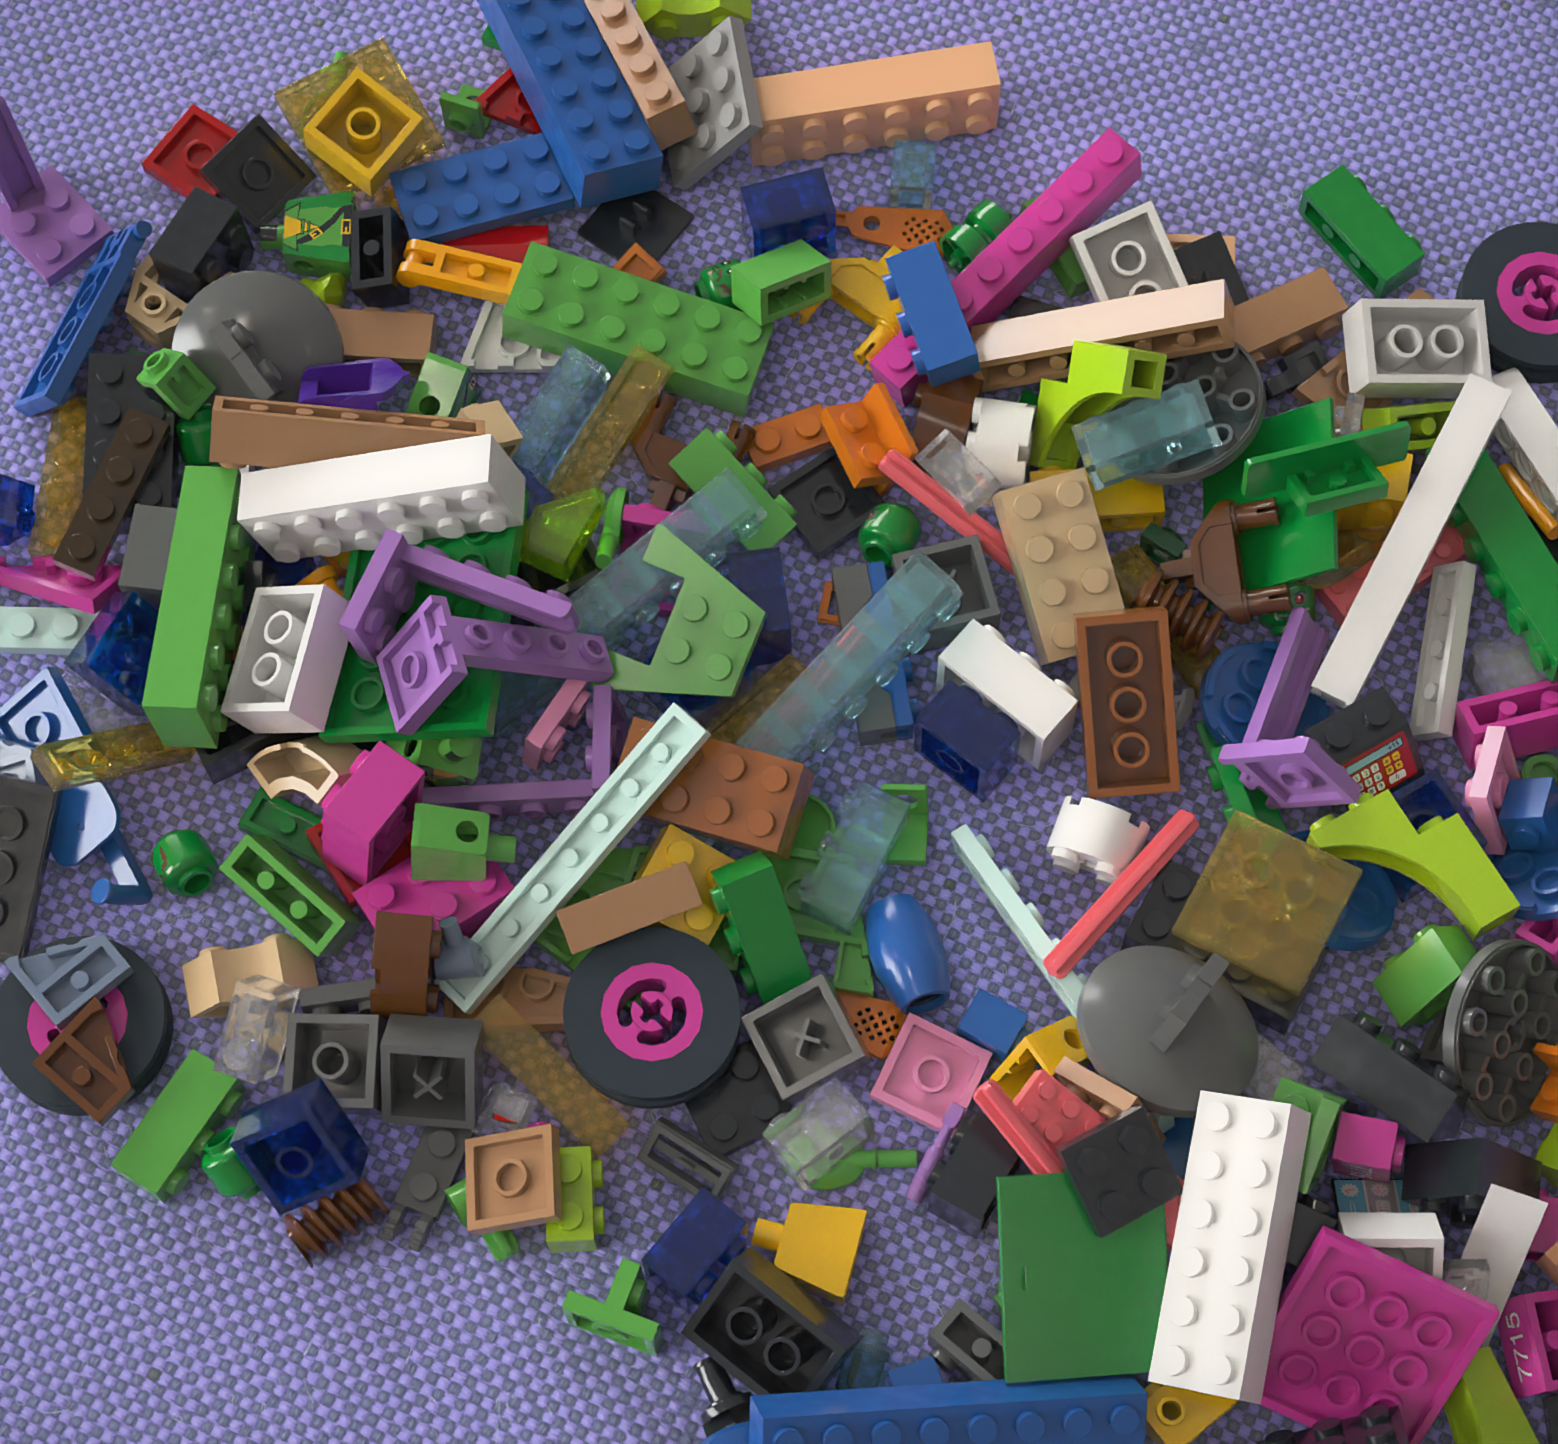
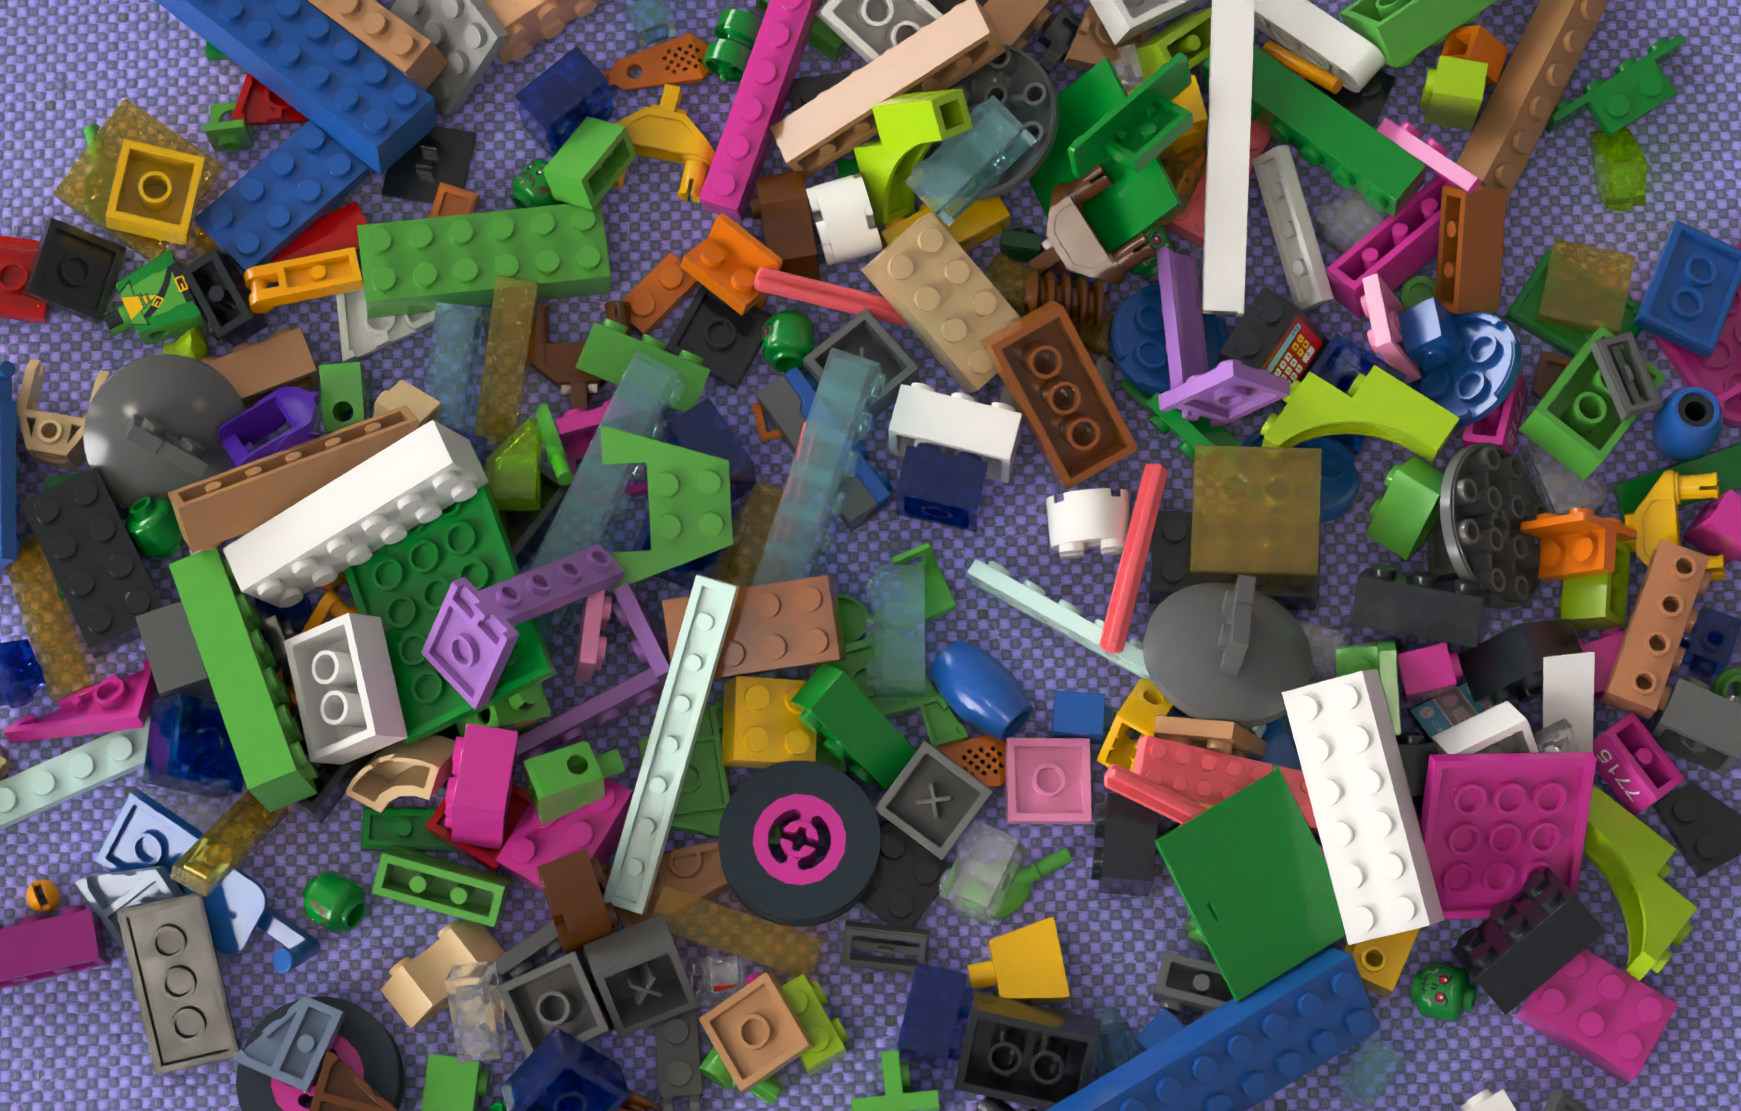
camera: 25 degrees left, 5 degrees up
(111, 494) = (108, 616): dark brown plate -> none
(176, 381) = (111, 491): bright green bracket -> none
(201, 245) = (64, 361): black brick -> none
(390, 589) = (406, 591): medium lavender bracket -> none
(458, 953) = (617, 868): sand blue piece -> none
(629, 907) = (738, 762): medium nougat tile -> none
(930, 315) = (735, 136): blue brick -> none
(934, 1153) = (1083, 848): medium lavender piece -> none
(958, 472) = (826, 262): clear tile -> none
(1119, 1170) = (1248, 788): black plate -> none

